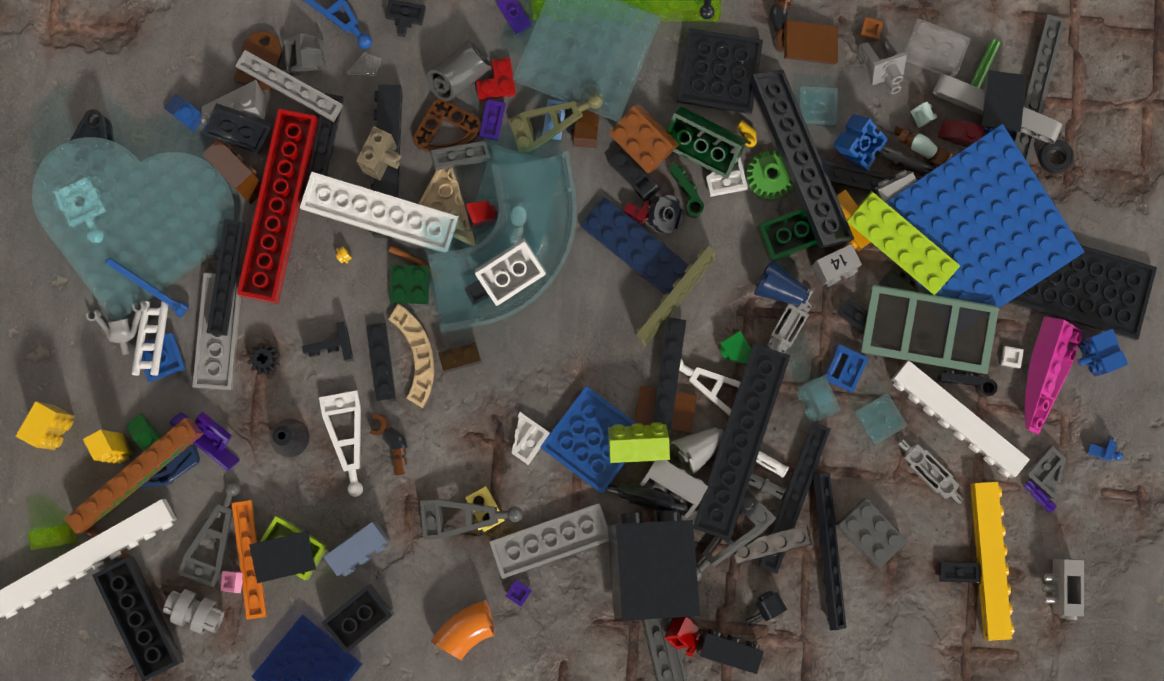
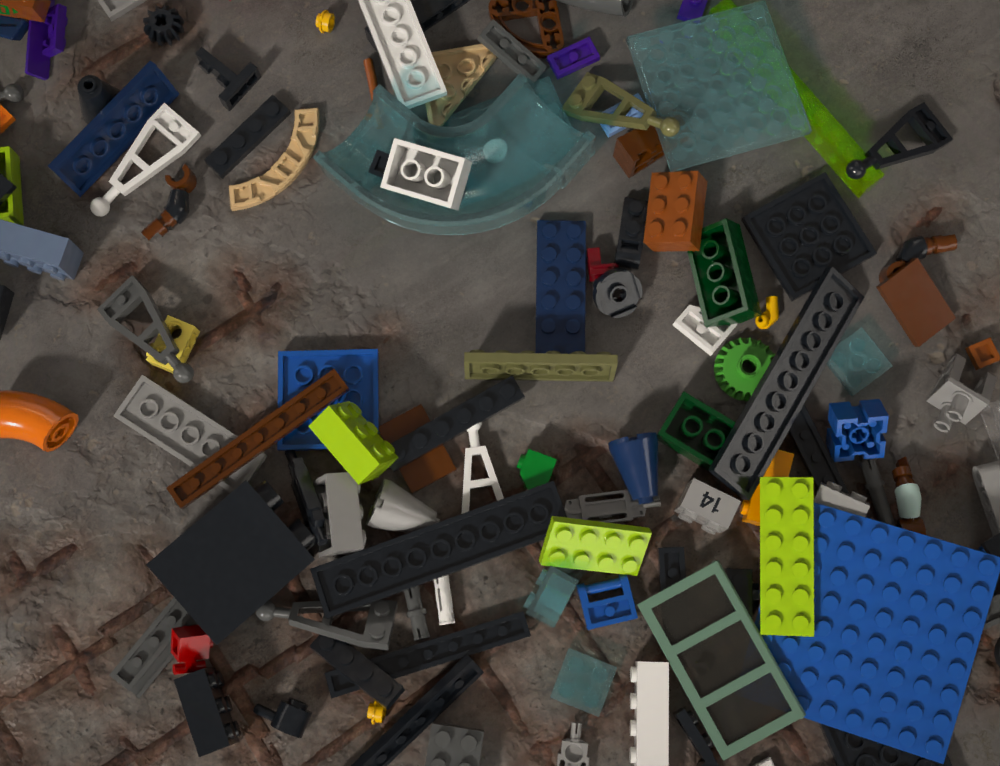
camera: 55 degrees right, 5 degrees down
(314, 442) = (113, 129): none -> dark blue plate
(410, 284) = (344, 103): dark green plate -> none
(459, 357) = (309, 204): dark brown brick -> none
(481, 213) = (465, 106): red slope -> none
(501, 85) = (613, 40): red plate -> none
(518, 593) = (111, 444): dark purple plate -> none
(528, 439) = (278, 334): white wing -> none
(588, 499) = (257, 439): none -> reddish brown plate
(688, 188) = (662, 299): dark green plate -> none
(805, 553) = (376, 713): none -> yellow plate
(809, 349) = (594, 546): none -> lime plate
(923, 114) = (941, 476): light aqua tile -> none
(960, 132) = (956, 527): dark red slope -> none

